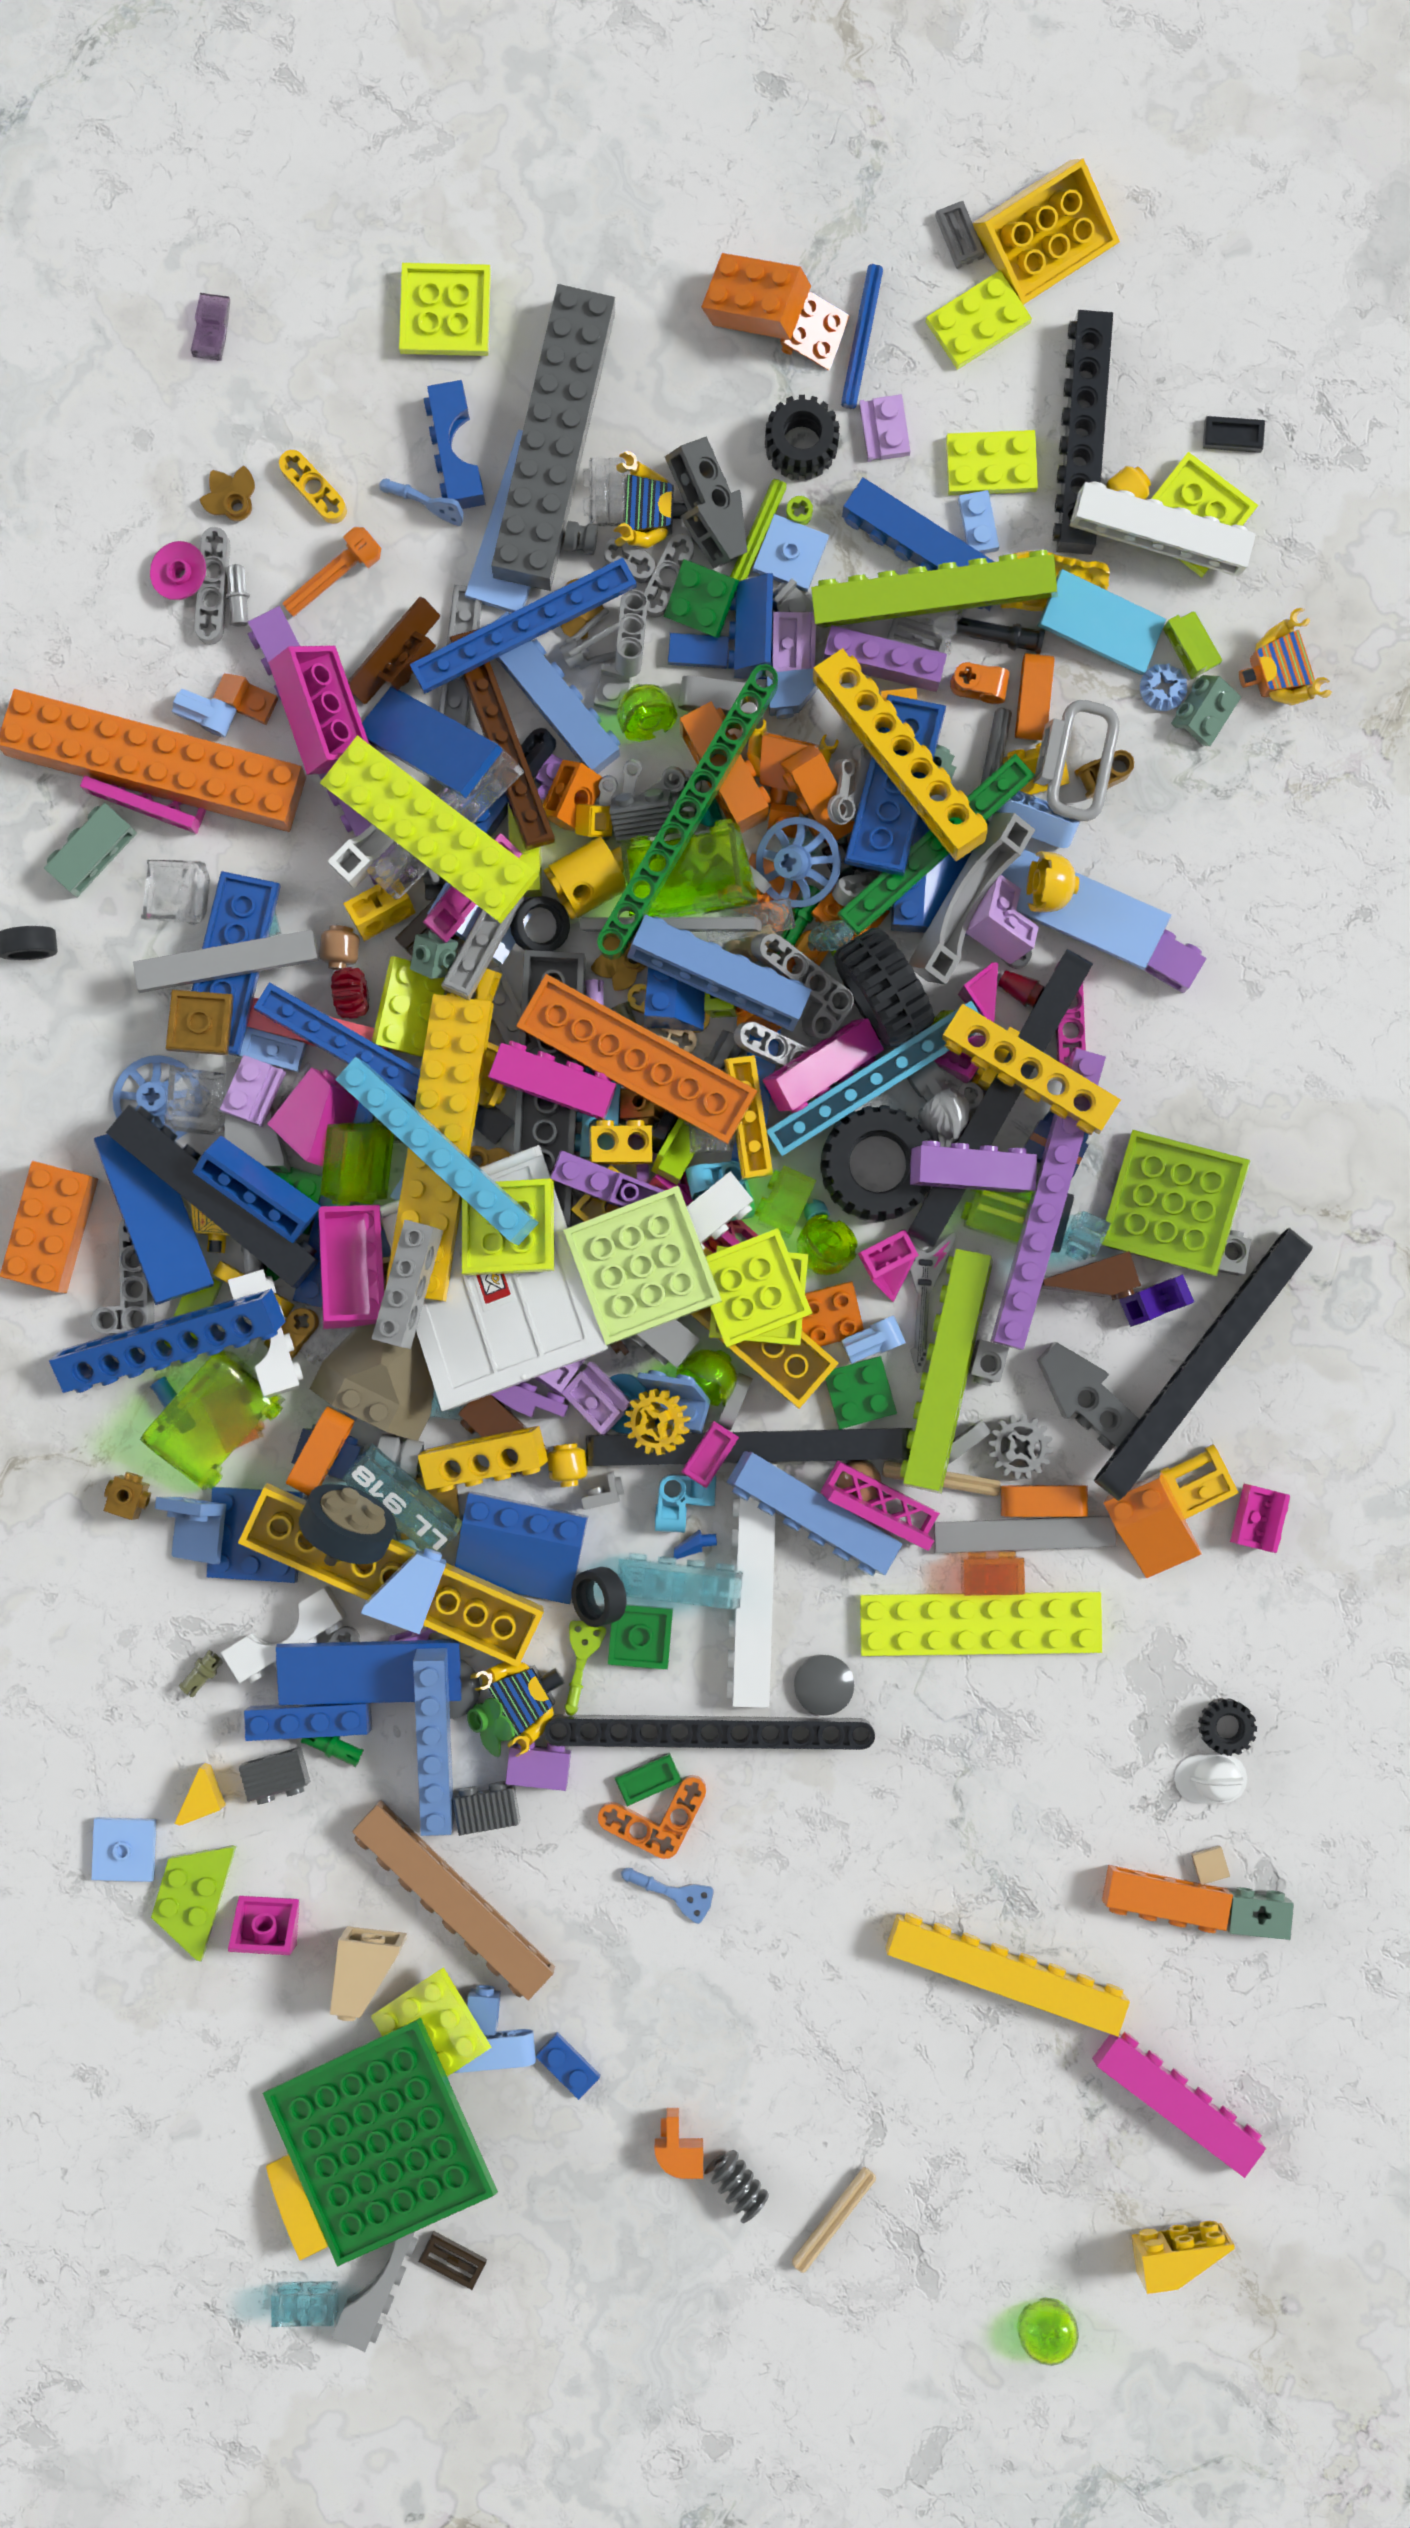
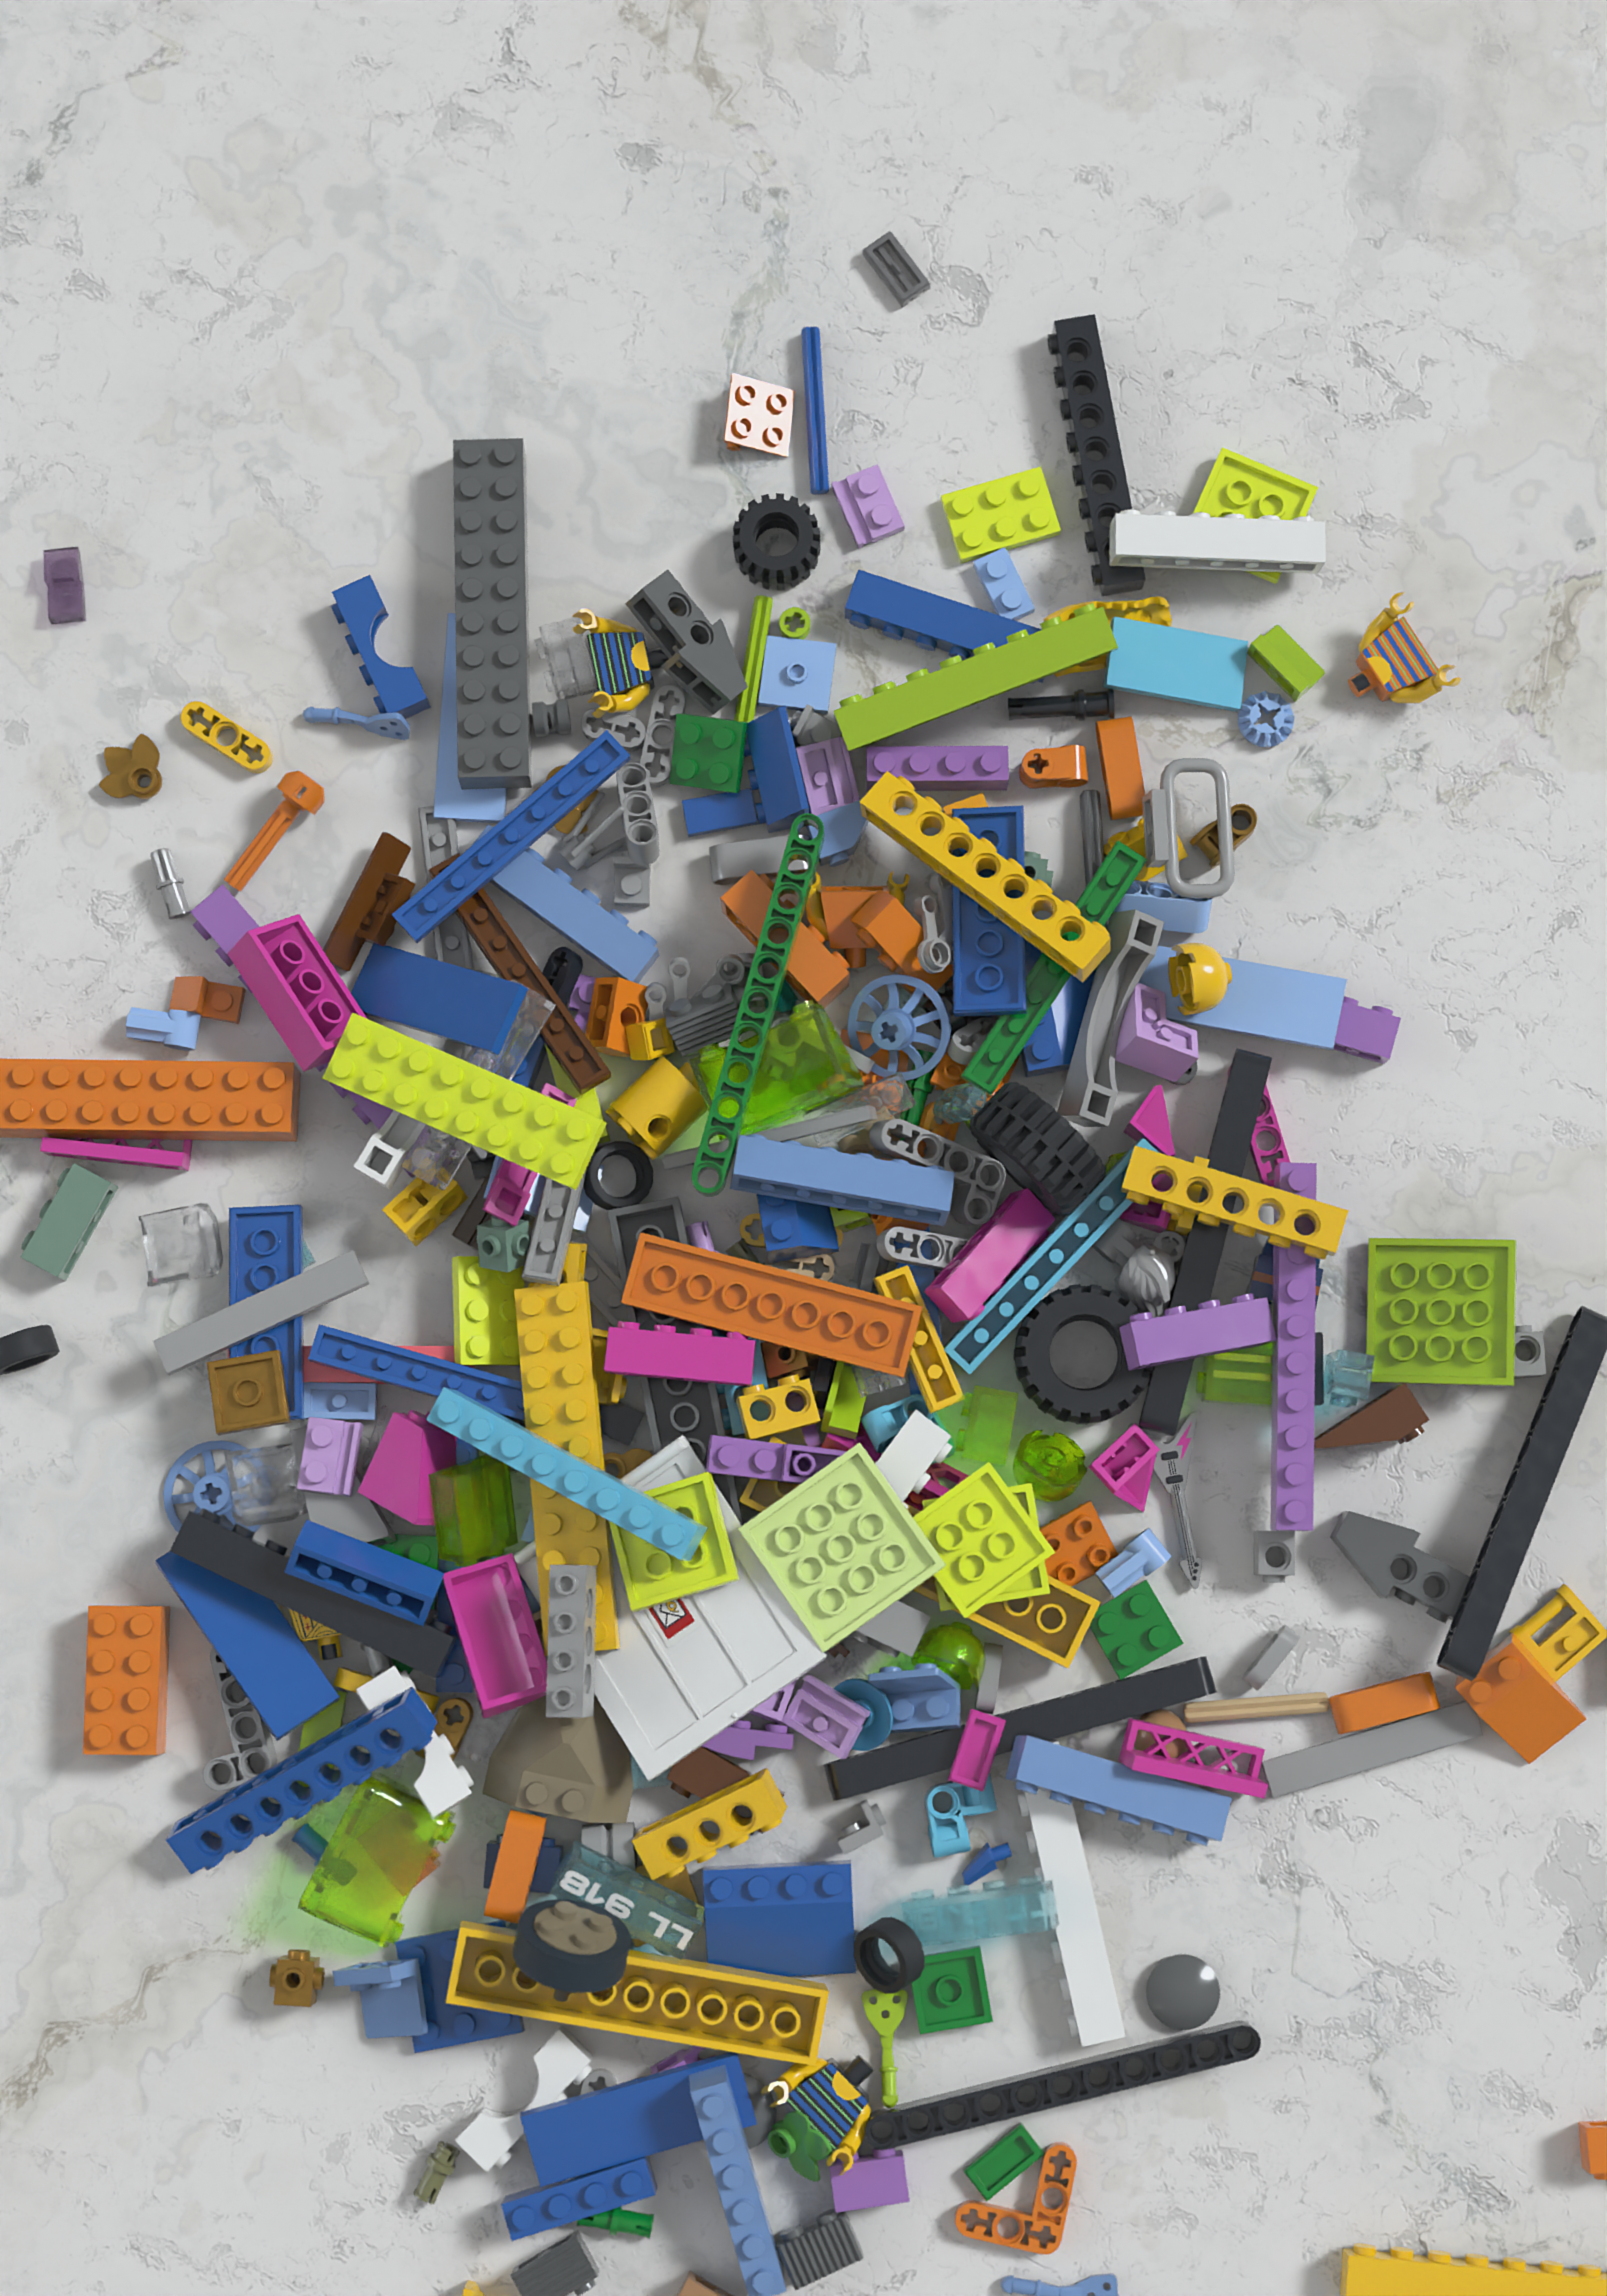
camera: 10 degrees left, 5 degrees down
(169, 564) = (80, 872): dark pink dish -> none
(215, 585) = (140, 879): light grey beam -> none
(339, 947) = (388, 1261): medium nougat head -> none
(350, 993) = (415, 1311): dark red gear -> none
(408, 1592) = (663, 2009): light blue slope -> none
(445, 309) = (329, 499): neon yellow plate -> none
(567, 1464) = (810, 1805): yellow head -> none
(620, 970) = (726, 1205): pearl gold plate -> none
(645, 711) = (676, 897): clear neon green cylinder -> none
(663, 1433) = (915, 1739): yellow gear -> none
(756, 296) = (683, 397): orange brick -> none
(780, 812) = (863, 975): orange plate -> none
(815, 1208) = (1024, 1425): hinge -> none
(918, 626) = (970, 721): light grey tile -> none
(944, 627) = (997, 716): clear plant -> none
(947, 1371) = (1230, 1579): lime brick -> none
(978, 319) = (943, 358): neon yellow plate -> none
(980, 1623) = (1348, 1869): neon yellow plate -> none
(992, 1574) = (1347, 1806): clear orange brick -> none
(1022, 988) = (1195, 1106): dark red cone -> none
(1031, 1439) = (1349, 1633): light grey gear -> none
(1047, 230) = (995, 241): yellow slope -> none
(1130, 480) = (1165, 497): yellow head -> none
(1156, 1300) = (1452, 1431): dark purple brick -> none
(1206, 708) = (1322, 731): sand green bracket -> none
(1233, 434) = (1268, 414): black tile -> none

